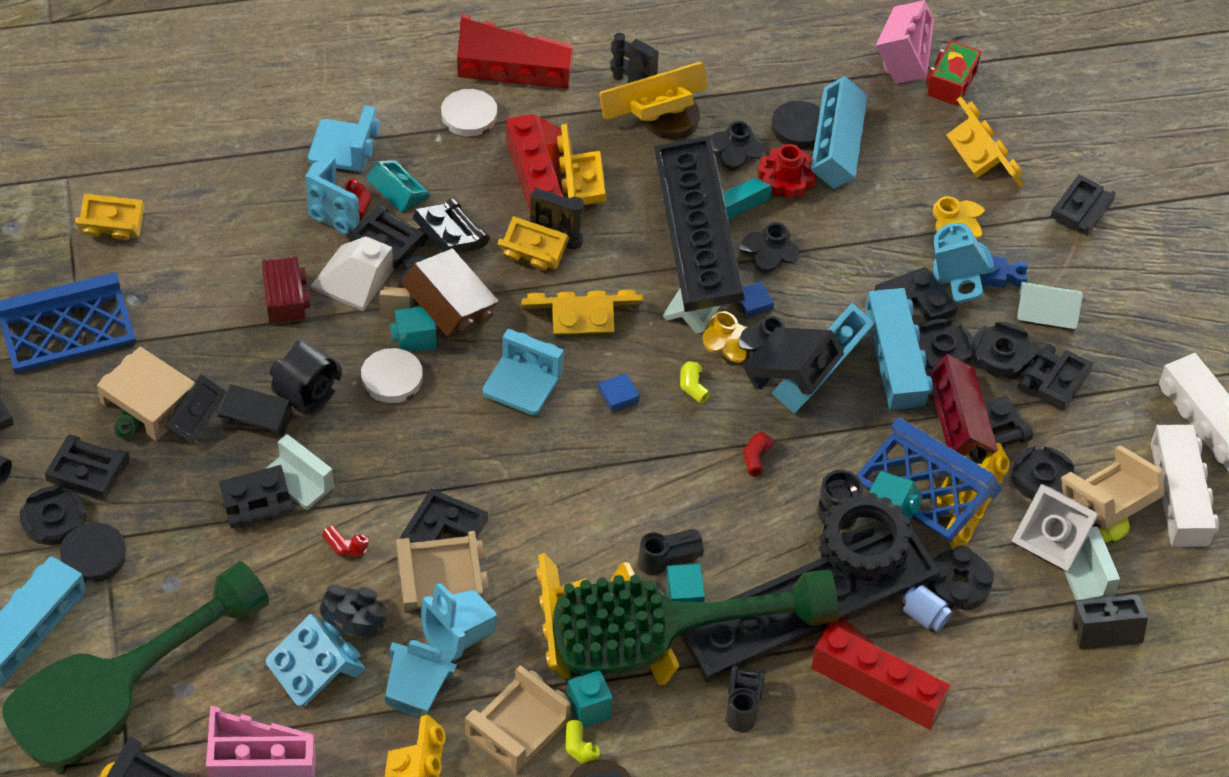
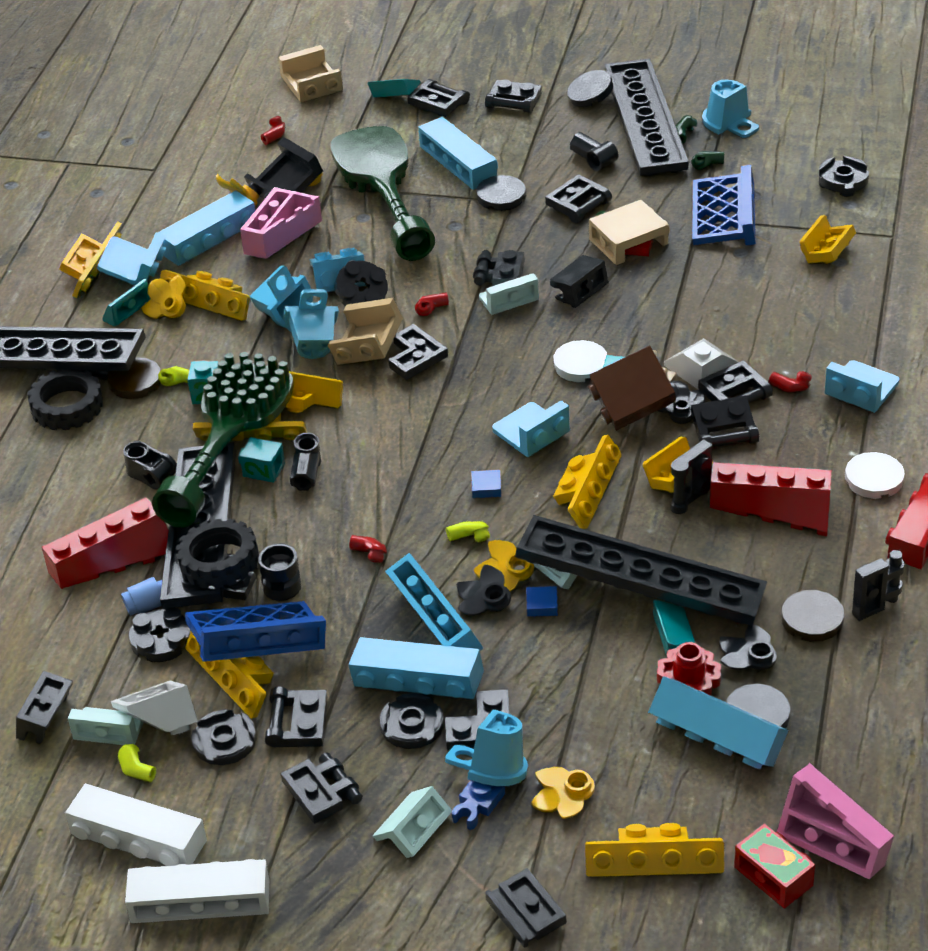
camera: 120 degrees right, 10 degrees down
(51, 515) = (544, 180): black tile -> none
(195, 409) = (595, 245): black plate -> none
(284, 289) = (699, 315): dark red brick -> none
(305, 377) = (589, 297): black brick -> none
(328, 201) = (782, 344): medium azure bracket -> none
(397, 184) = (800, 411): teal slope -> none
(519, 720) = (214, 338): tan panel -> none
(582, 171) = (749, 516): yellow bracket -> none
(655, 94) = (826, 594): yellow bracket -> none
(770, 246) = (599, 635): black plate -> none
(795, 355) = (424, 564): black panel -> none
(900, 491) = (248, 592): teal brick -> none
(961, 406) = (316, 687): dark red panel -> none
(999, 363) = (380, 773): black plate -> none
(1118, 489) = (162, 760): tan panel -> none

